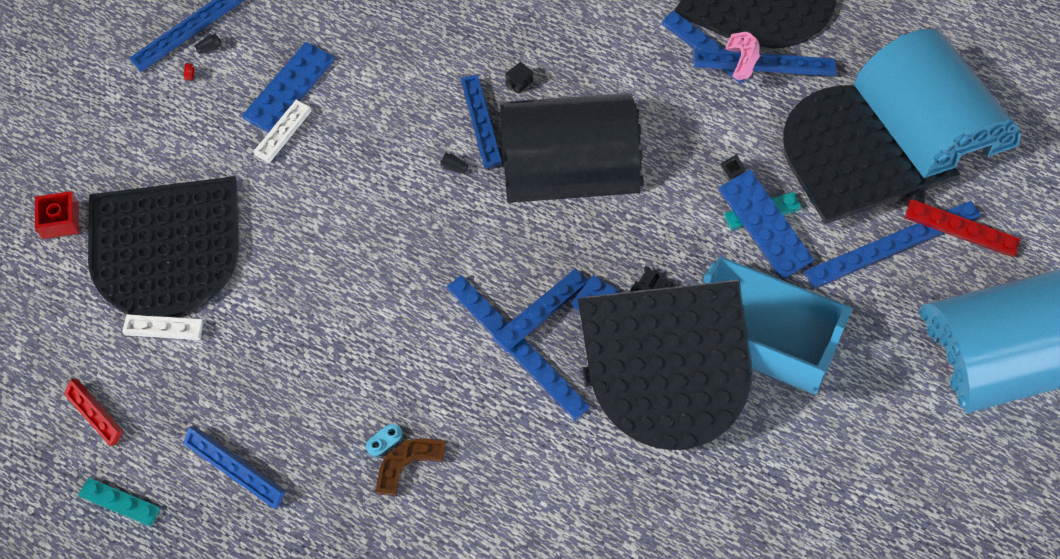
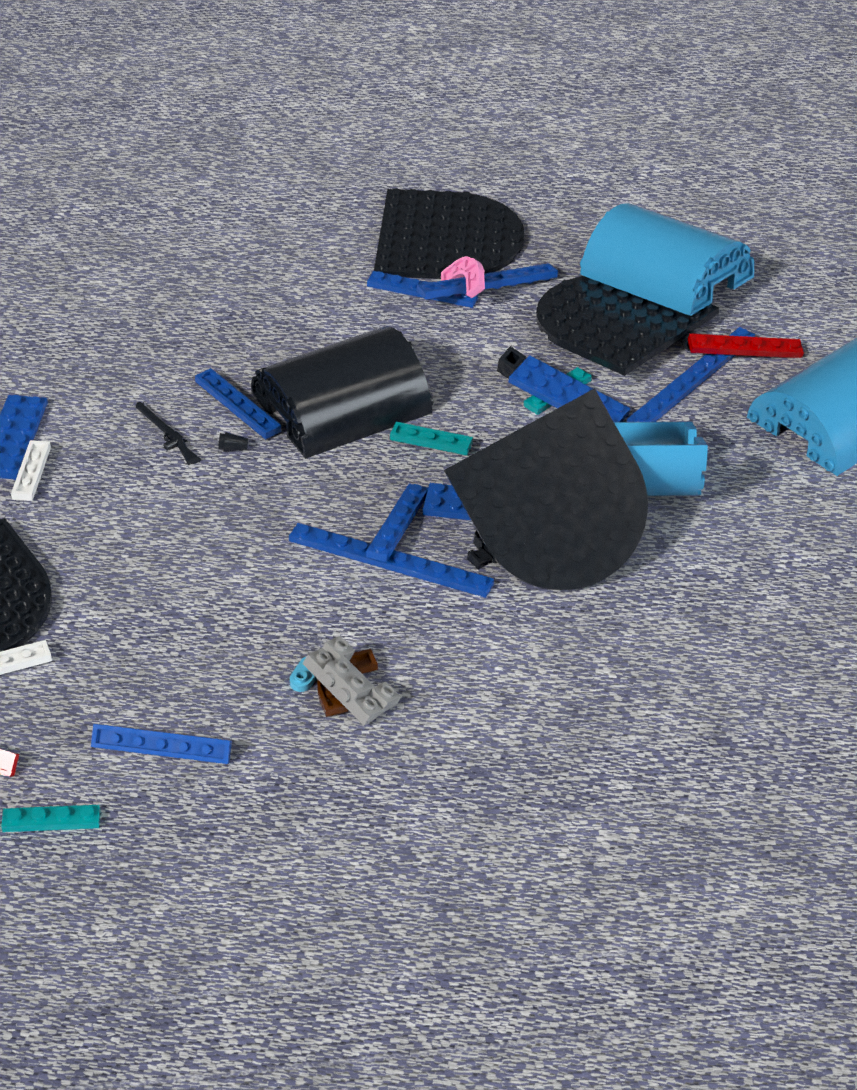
camera: 30 degrees left, 20 degrees down
(402, 475) = (347, 683): none -> light grey bracket
(414, 165) = (175, 438): none -> black piece
(518, 77) = (254, 358): black brick -> none
(621, 225) = (431, 438): none -> teal plate

